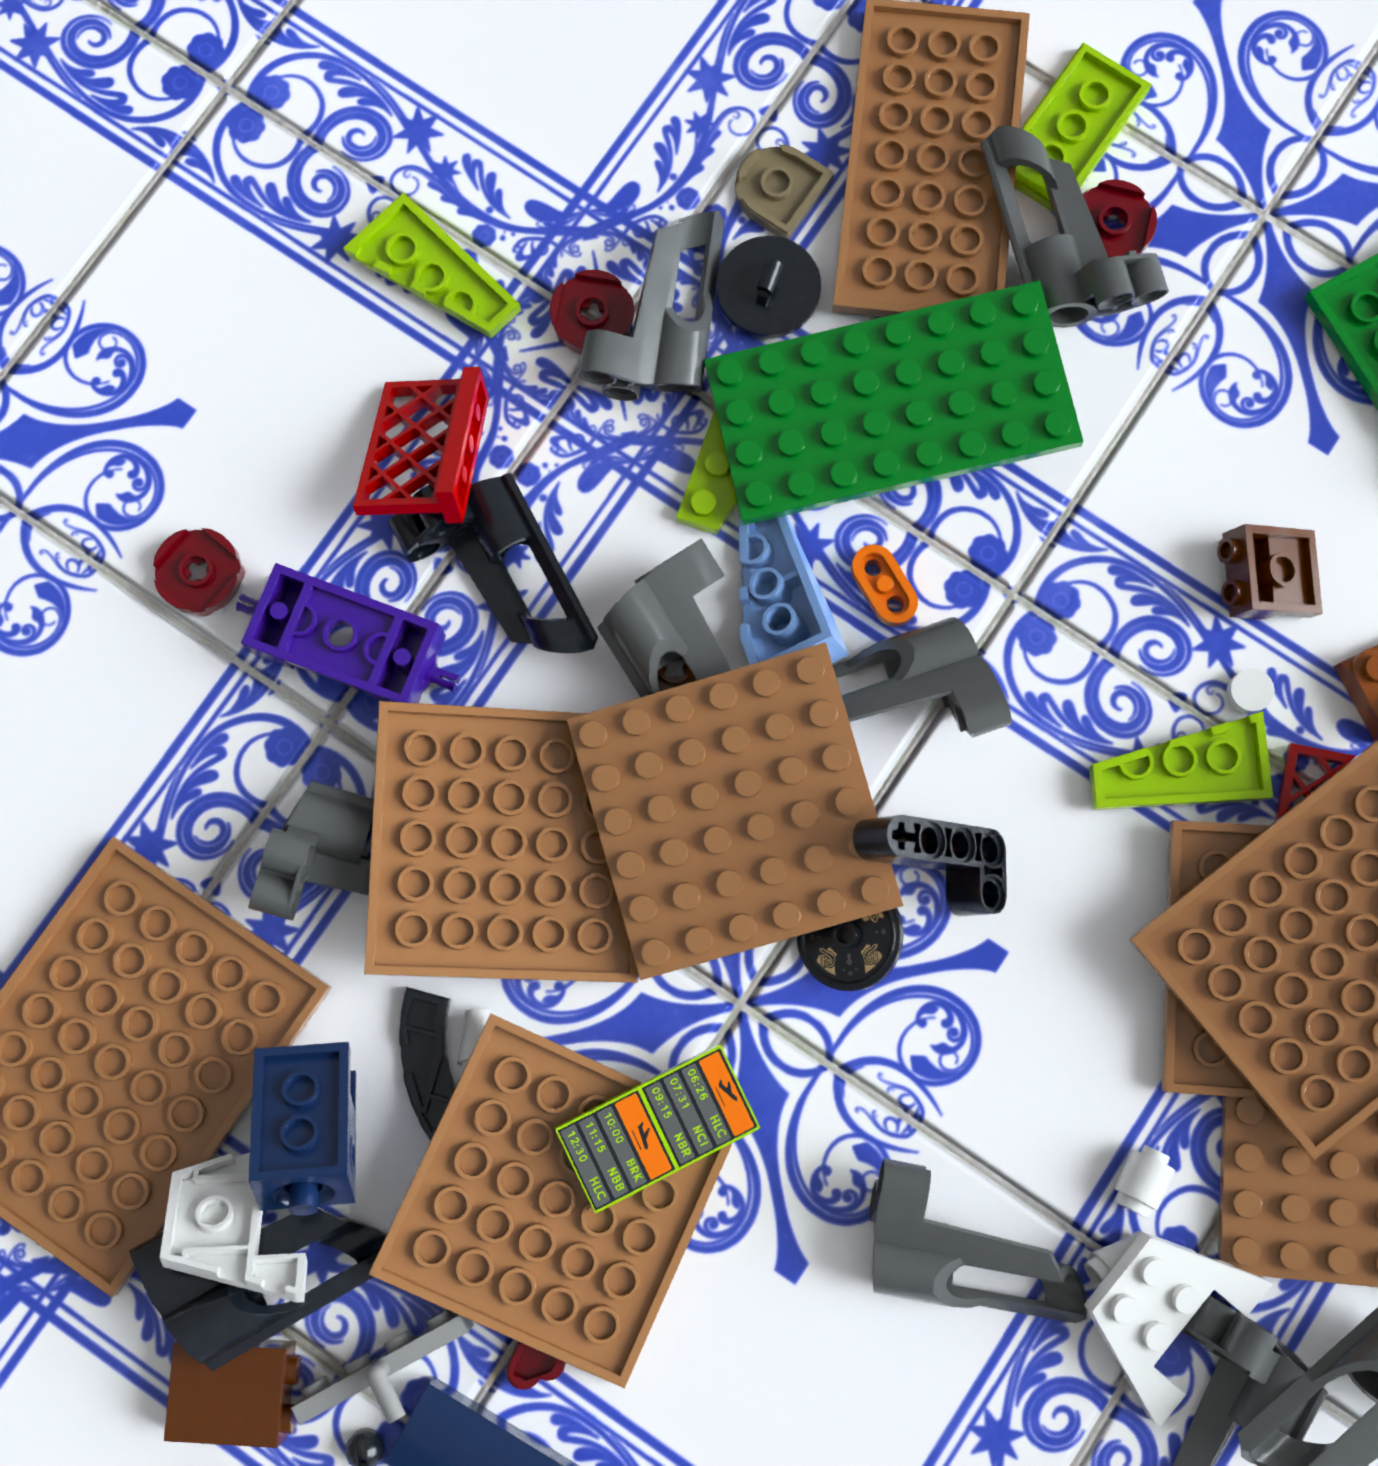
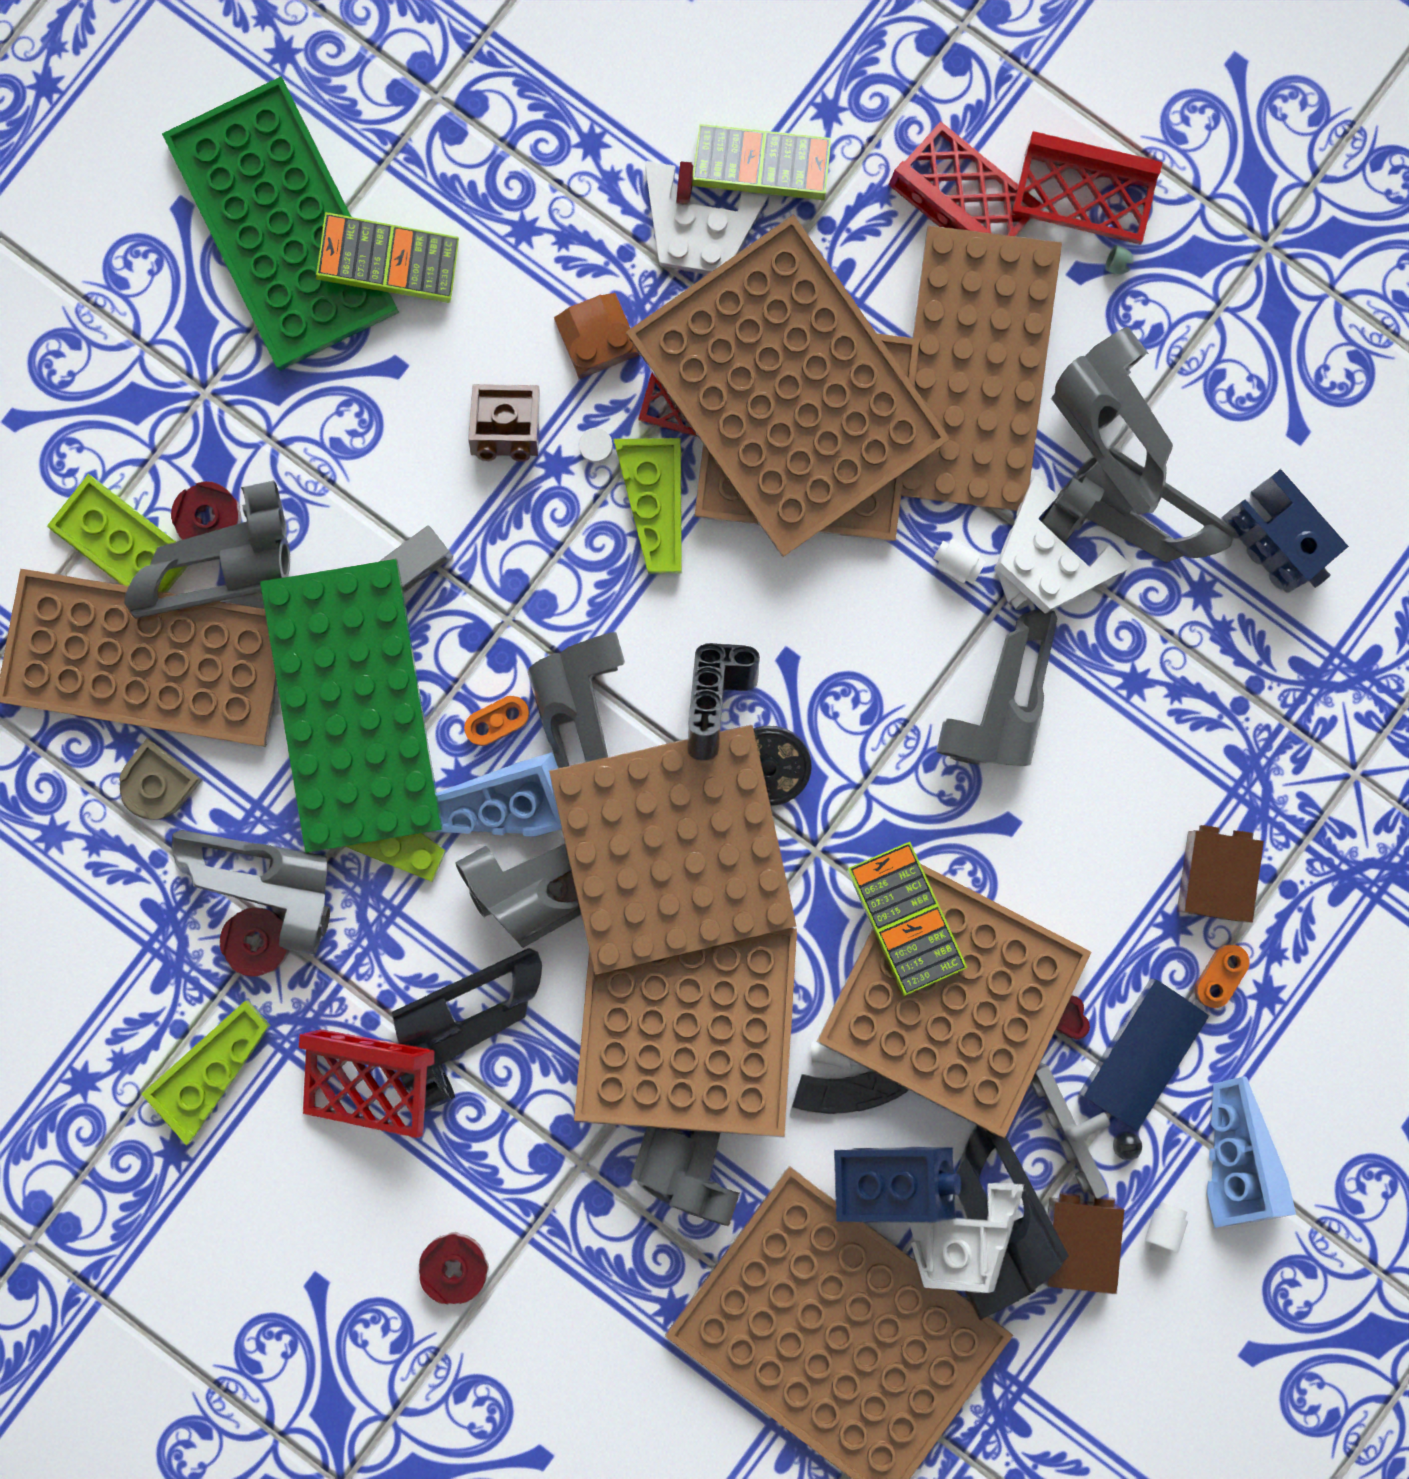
camera: 90 degrees left, 5 degrees up
(390, 650) = (529, 1112): dark purple brick -> none
(768, 286) = (241, 797): black shield -> none
(1082, 479) = (419, 557): none -> light grey panel

